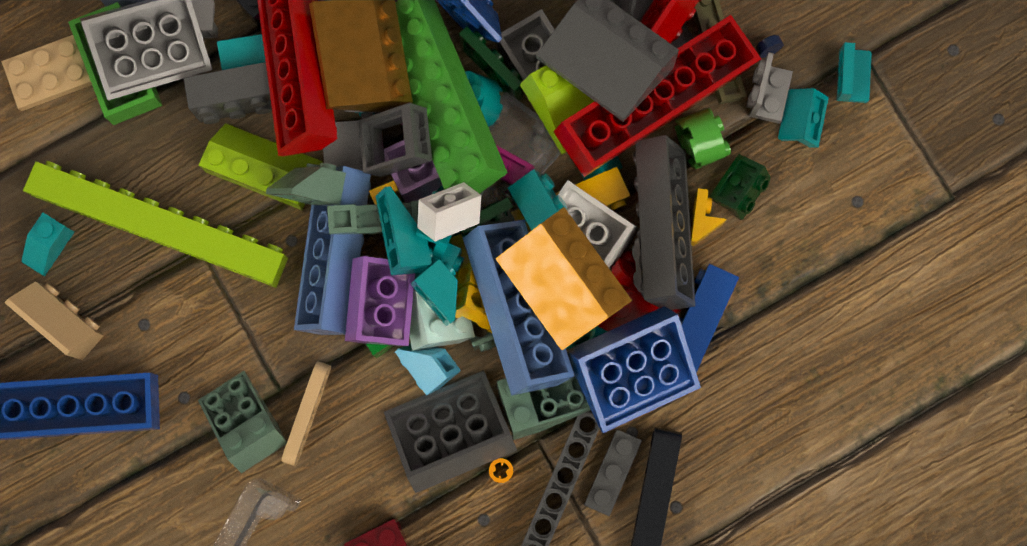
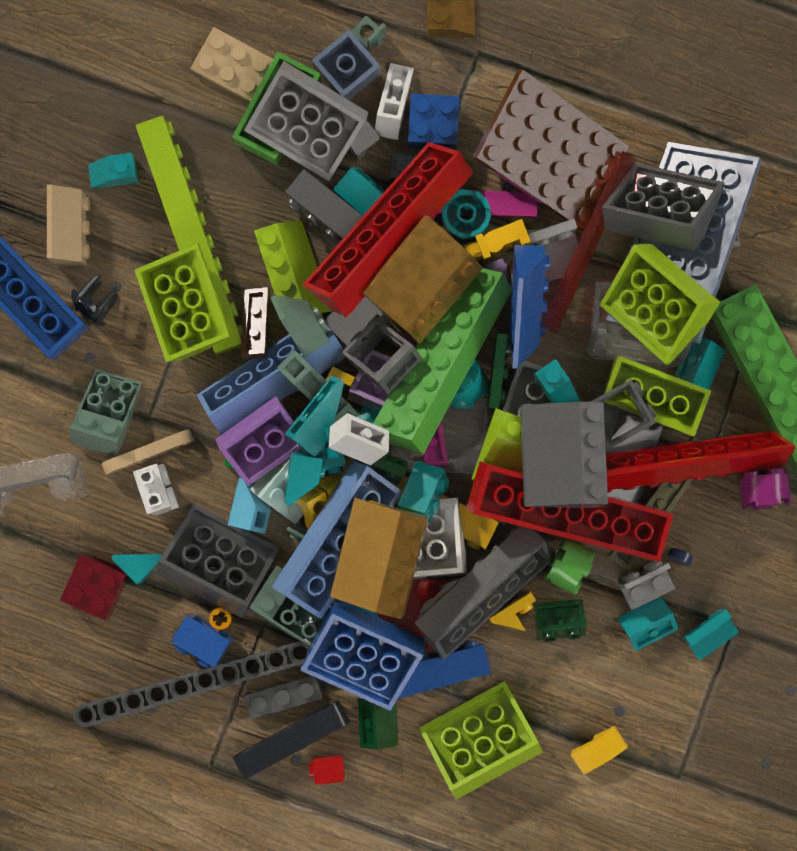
camera: 45 degrees right, 5 degrees up
(149, 356) = (82, 302): none -> black piece
(207, 273) = (183, 304): none -> lime slope
(277, 230) = (256, 323): none -> plate
(344, 431) = (154, 494): none -> white hips
(396, 501) = (137, 566): none -> teal slope
(507, 499) = (202, 641): none -> blue brick
(538, 20) = (556, 384): none -> teal slope
(702, 412) = (377, 725): none -> dark green panel
(706, 485) = (327, 769): none -> red brick
(788, 334) = (480, 740): none -> lime slope
(878, 243) = (599, 750): none -> yellow slope

